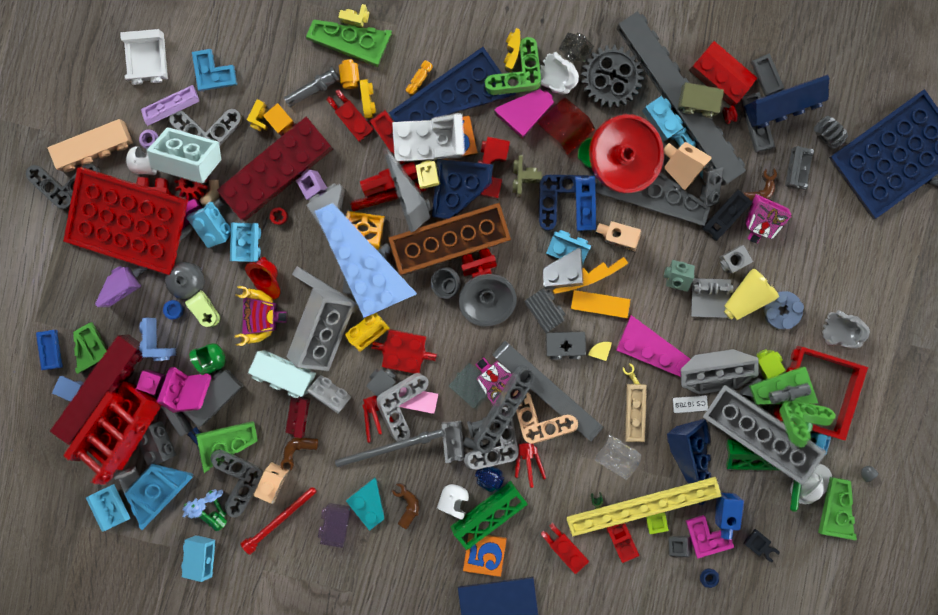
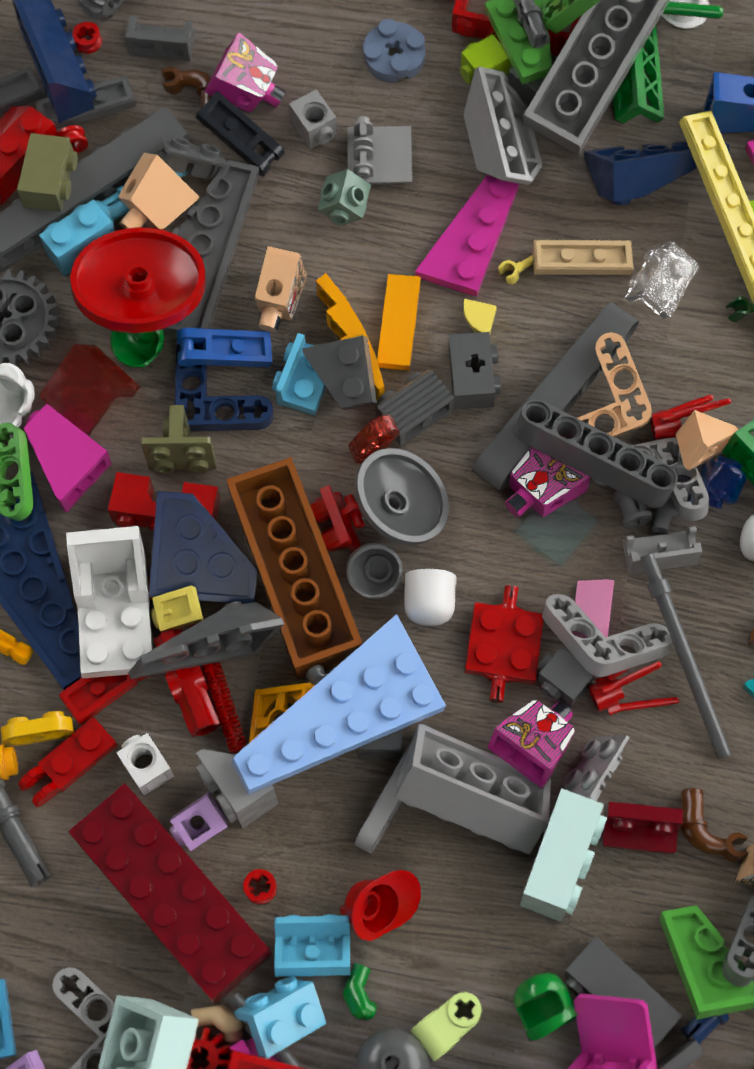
camera: 90 degrees left, 20 degrees down
(222, 262) = (356, 996): none -> green arm
(256, 114) = (59, 932): yellow bracket -> none
(259, 316) = (455, 911): torso -> none
(279, 119) = (75, 890): light orange brick -> none
(337, 156) = (152, 776): none -> white brick
(346, 364) = (534, 739): none -> torso
(366, 331) = (470, 706): yellow bracket -> none
(429, 312) = (429, 596): none -> white helmet
(513, 469) = (702, 438): none -> light nougat slope
(523, 286) = (373, 437): none -> clear red beam
(690, 404) = (560, 179): white sticker -> none
(750, 296) = (371, 90): light yellow cone -> none
(808, 125) = (92, 31): none -> red bush

